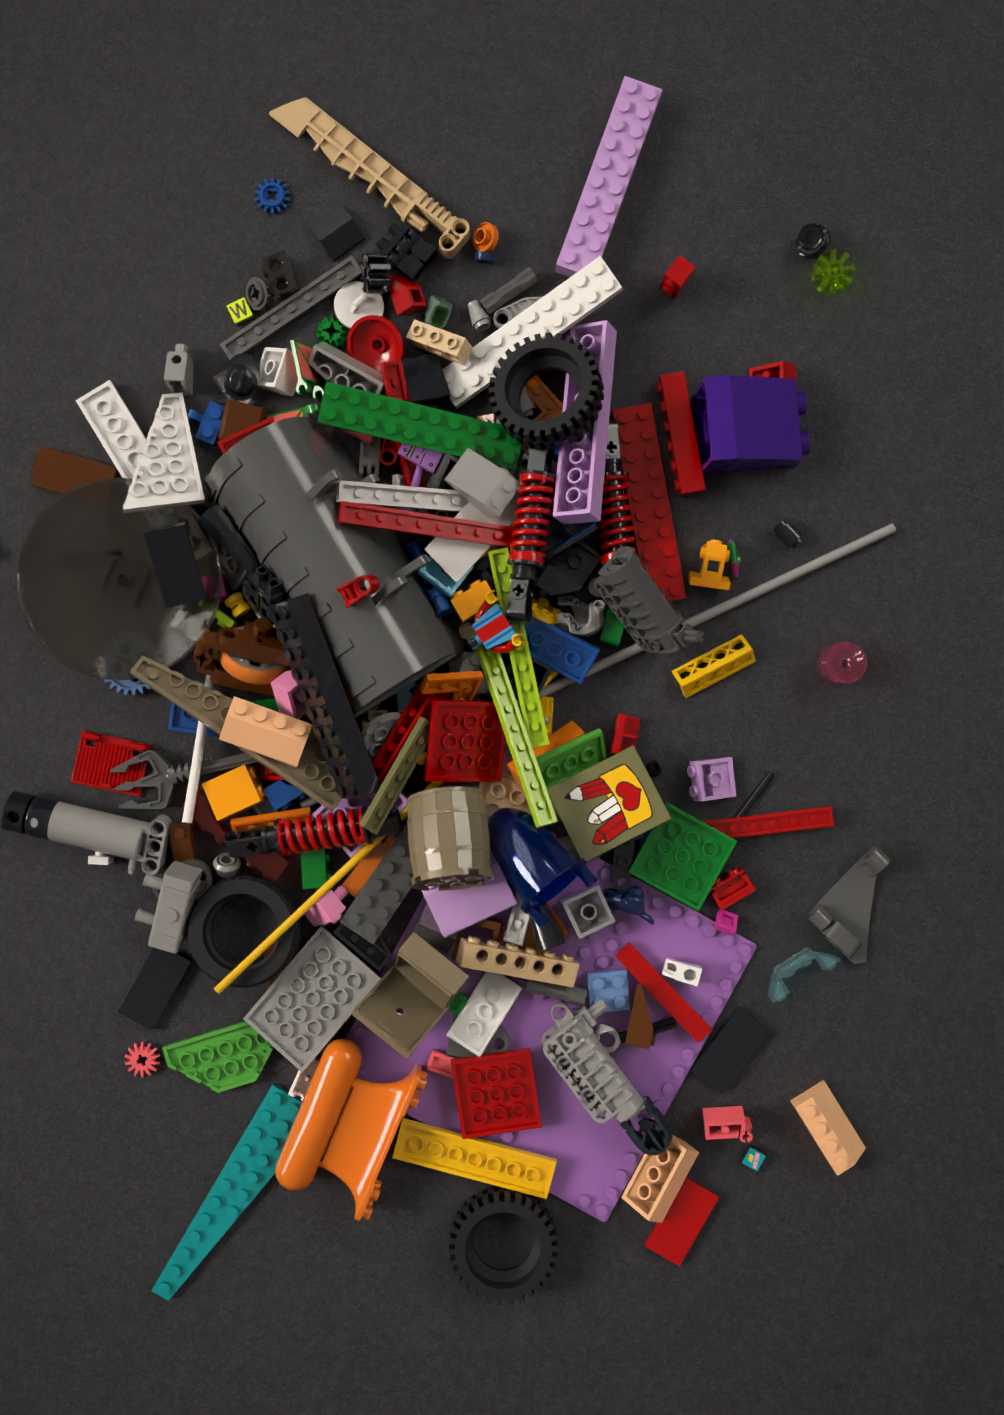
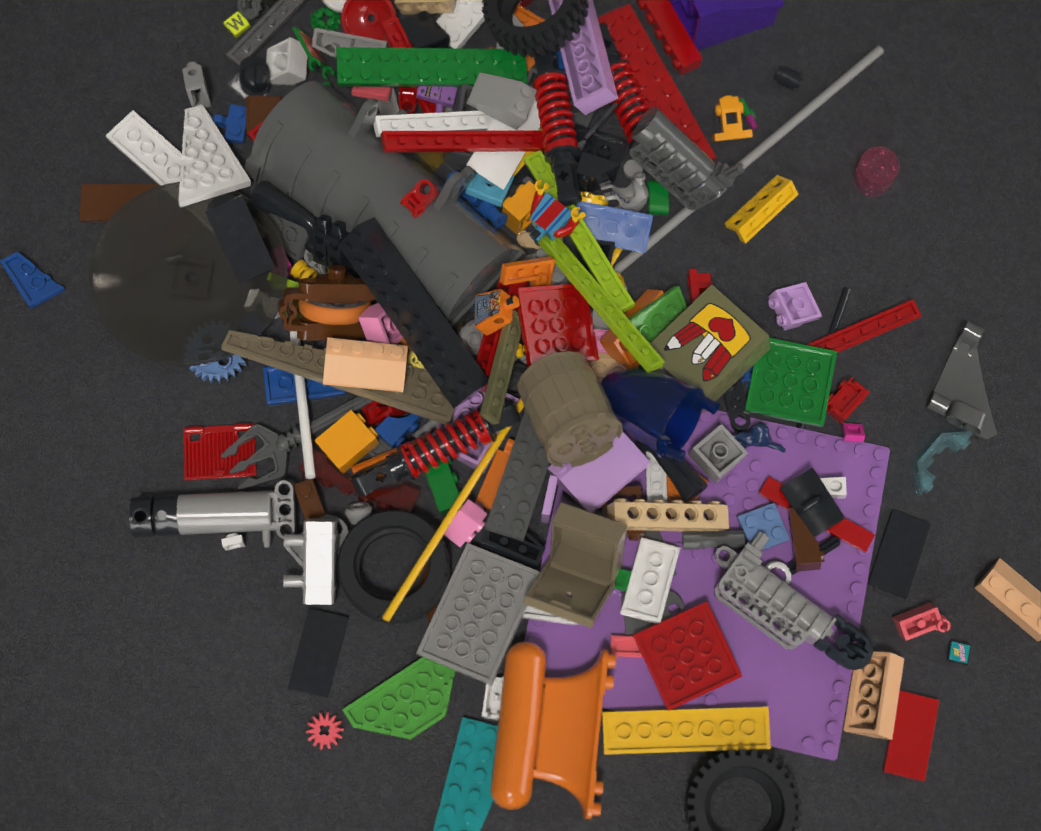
camera: 15 degrees left, 15 degrees down
(406, 715) = (494, 310): none -> orange torso
(410, 909) = (549, 499): none -> lavender tile
(661, 984) = (812, 502): none -> black shield

